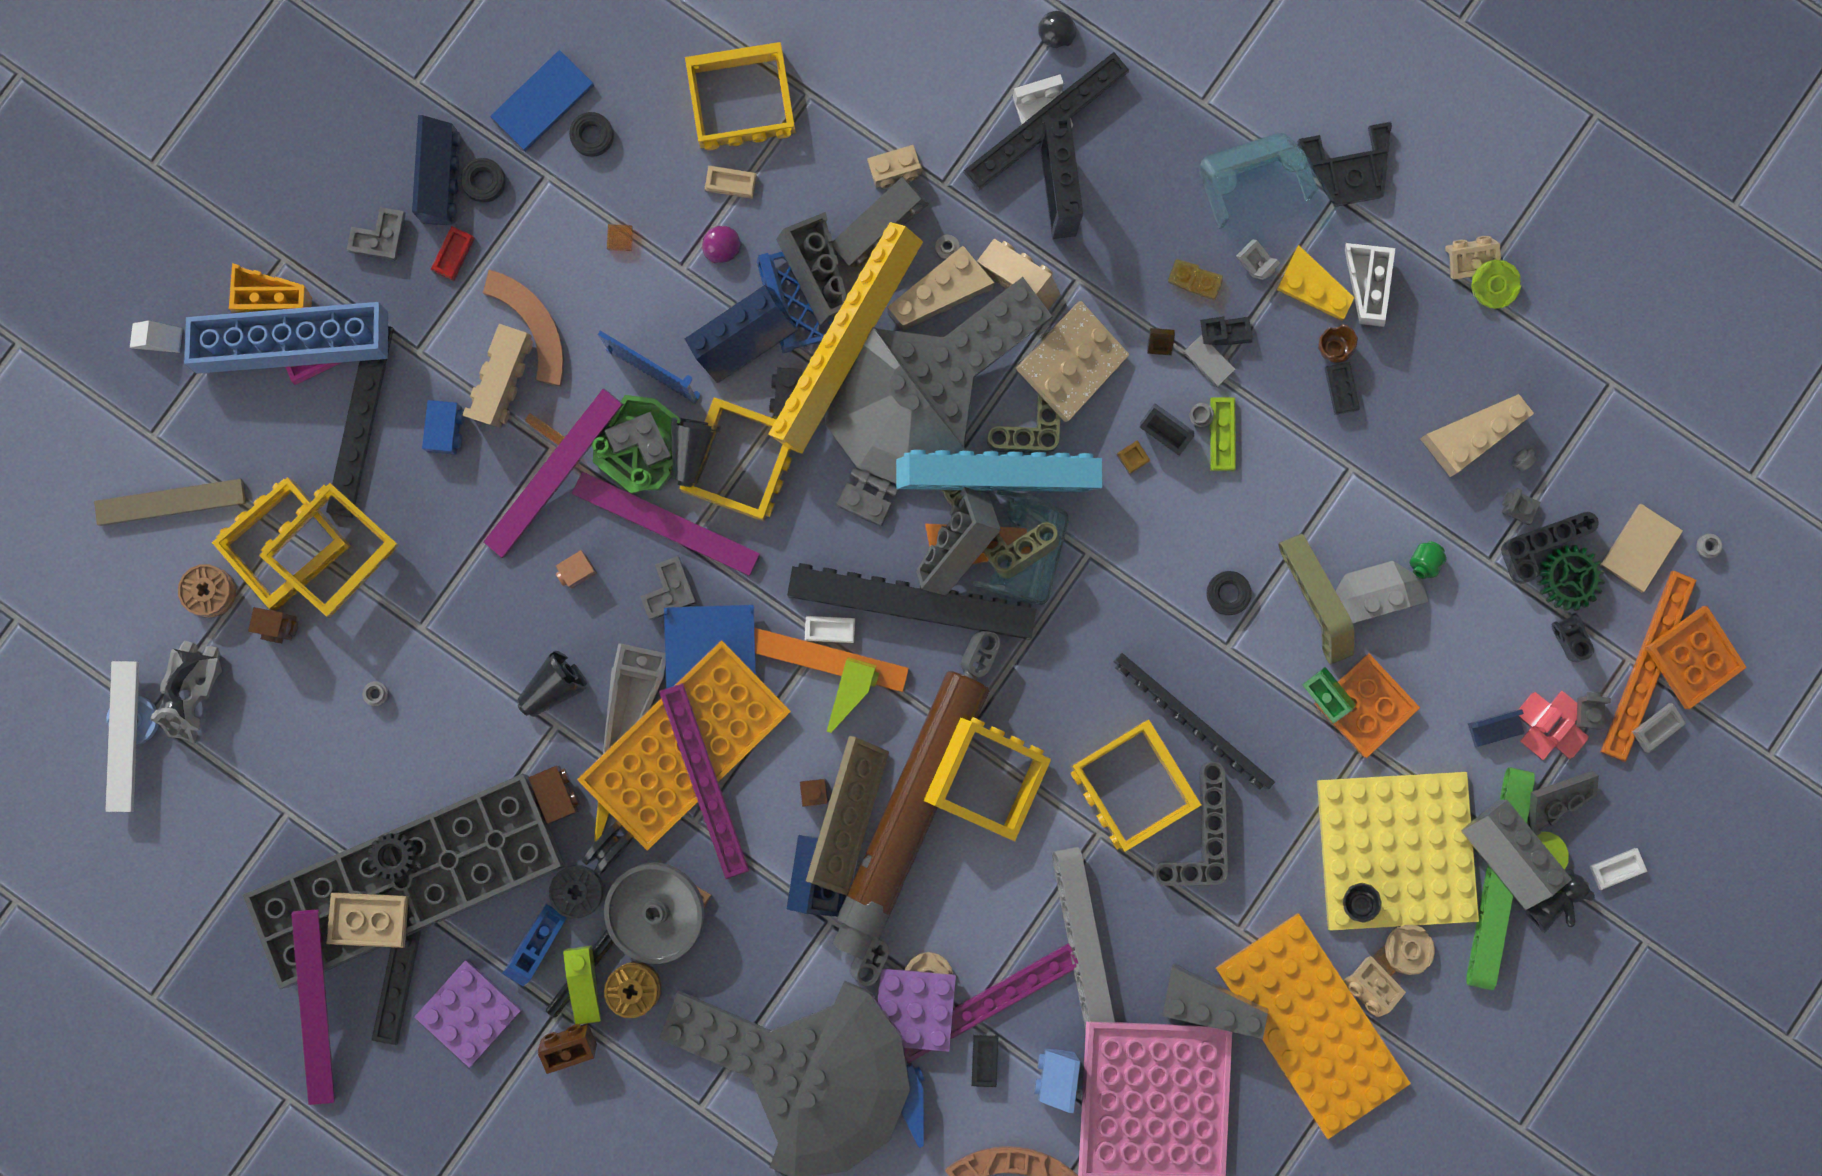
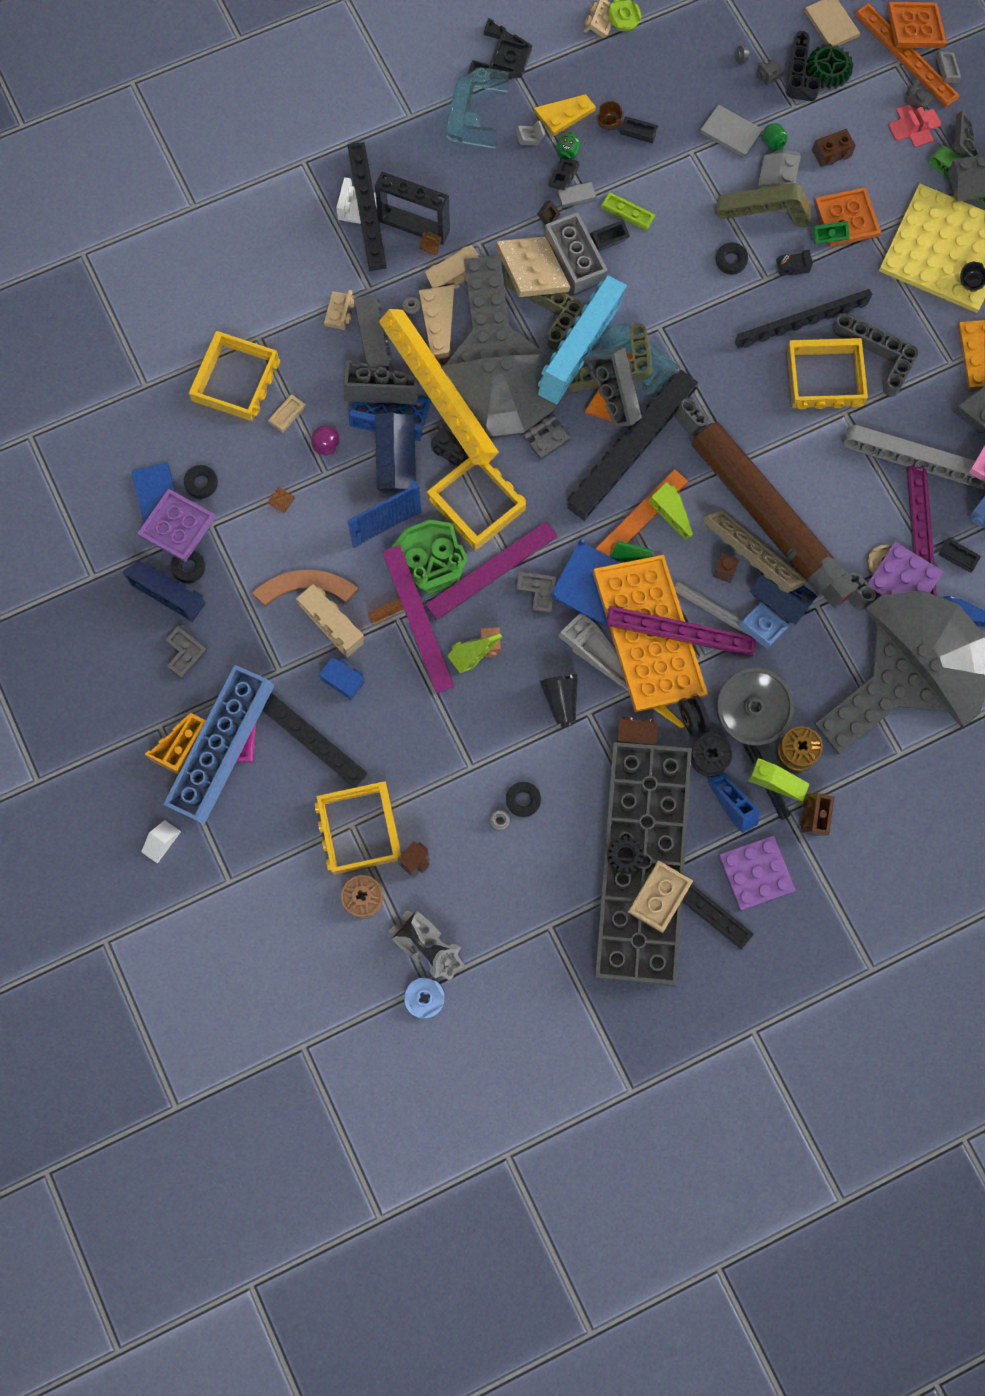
camera: 60 degrees left, 10 degrees down
(122, 736) = (433, 1008): white tile -> none
(169, 502) = (283, 892): dark tan tile -> none
(290, 529) = (378, 757): yellow window -> none
(313, 1006) = (701, 968): magenta tile -> none
(399, 699) = (527, 788): none -> black tyre
(452, 253) = (225, 612): red tile -> none
(518, 139) = (176, 525): none -> medium lavender plate
(546, 554) = (468, 654): none -> lime slope
(642, 433) = (428, 545): flat silver plate -> none
(691, 449) = (455, 517): black cone -> none
(758, 806) = (709, 606): none -> light grey axle
(766, 873) = (764, 625): none -> medium blue tile
(771, 670) = (629, 552): none -> green slope
(829, 629) = (621, 505): white tile -> none
(951, 763) = (761, 467): yellow window -> none
(1040, 223) = (430, 243): none -> clear orange tile
(1057, 29) = (310, 171): black hair -> none
(1123, 402) = (576, 252): none -> light grey brick
(1133, 457) = (614, 268): pearl gold tile -> none
(1195, 280) = (521, 176): clear yellow slope -> none
(1201, 415) = (609, 215): flat silver plate -> none
(1263, 672) = (795, 263): none -> black leg
(1267, 315) = (568, 146): none -> green head
(1370, 279) = (582, 78): white wedge -> none
(1408, 502) = (731, 131): none -> light grey tile
(1454, 641) = (833, 148): none -> reddish brown brick
(1470, 437) = (712, 74): tan wedge -> none
(1496, 728) = (900, 154): dark blue panel -> none
(1573, 636) = (870, 84): black piece -> none

